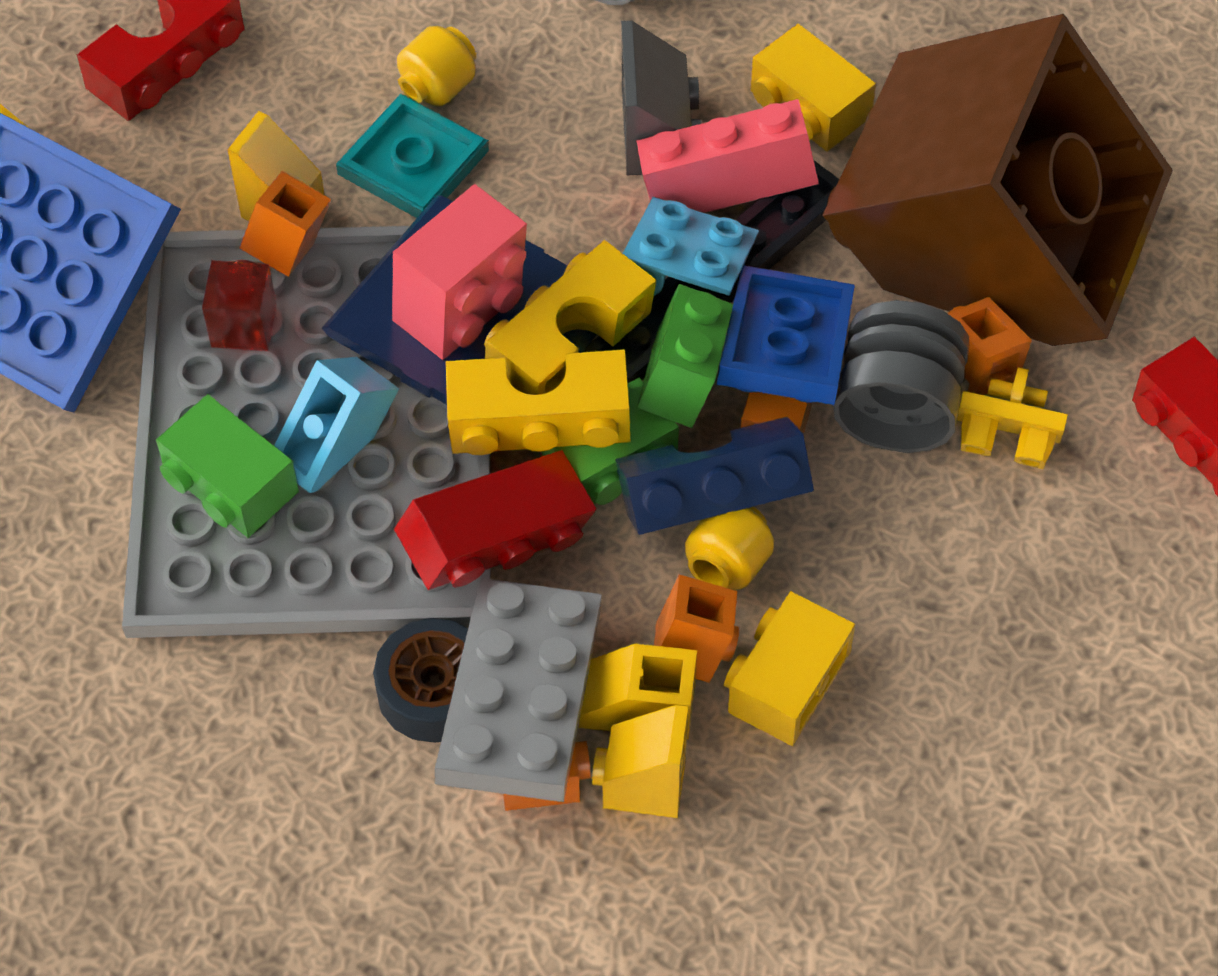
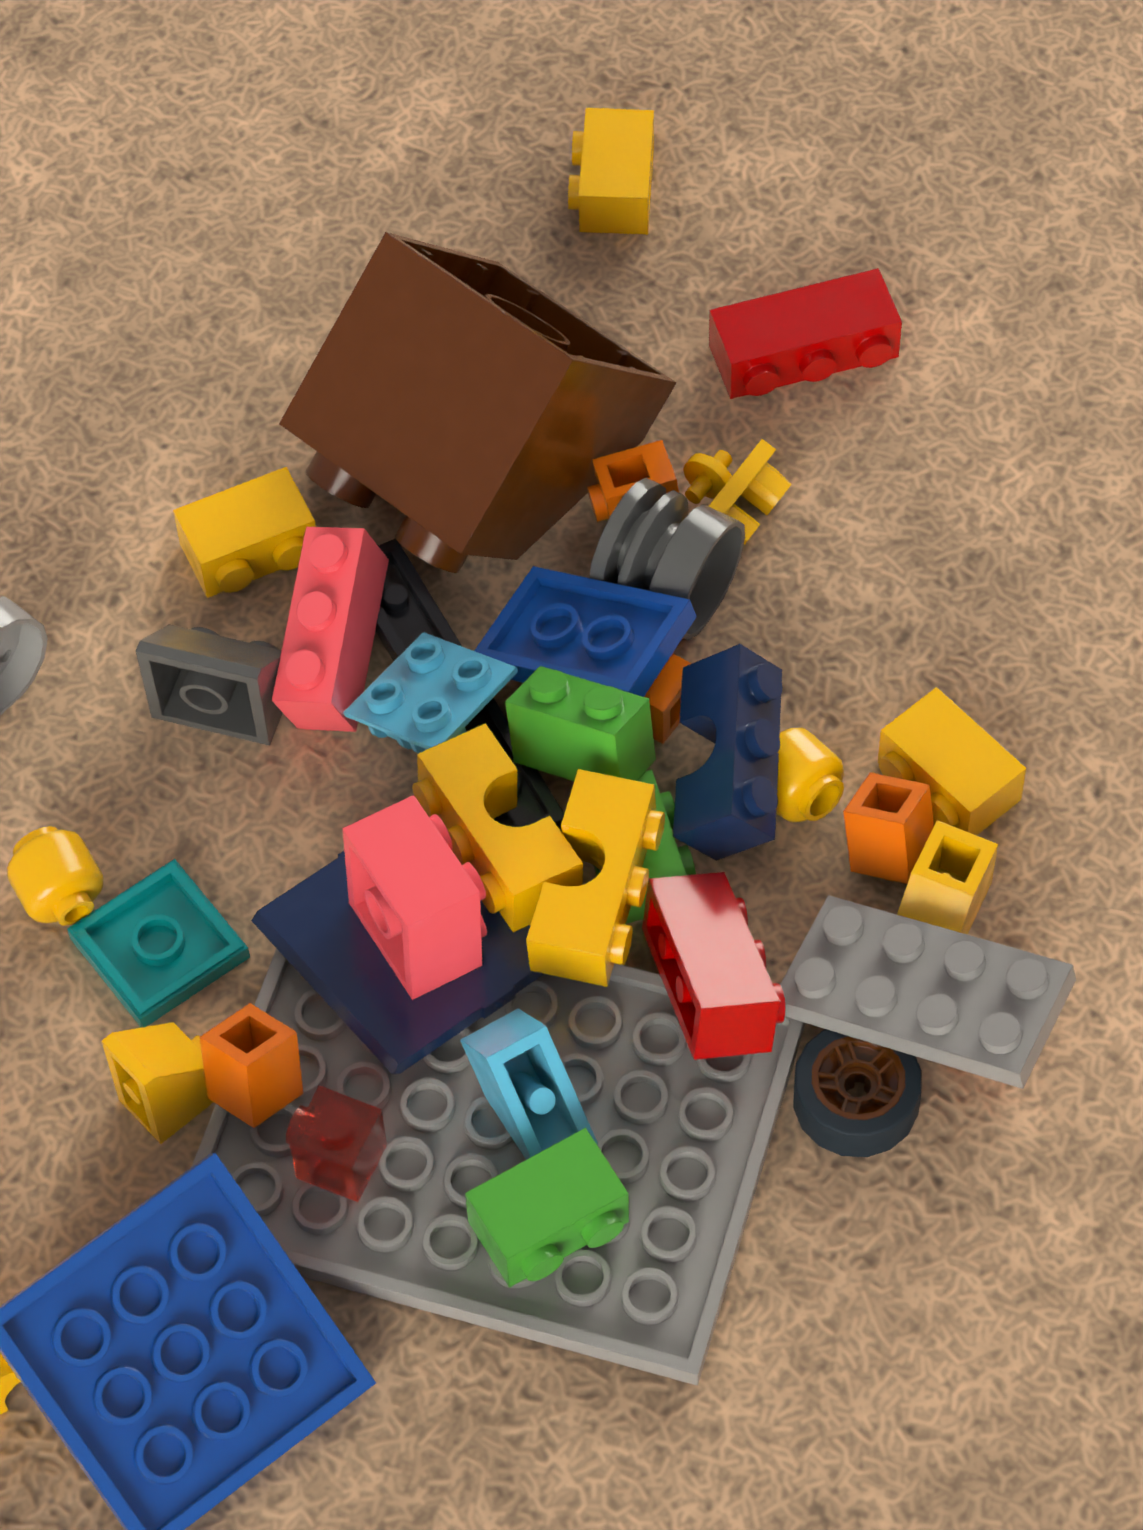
camera: 70 degrees left, 0 degrees up
(644, 763) = (1033, 897): yellow slope -> none

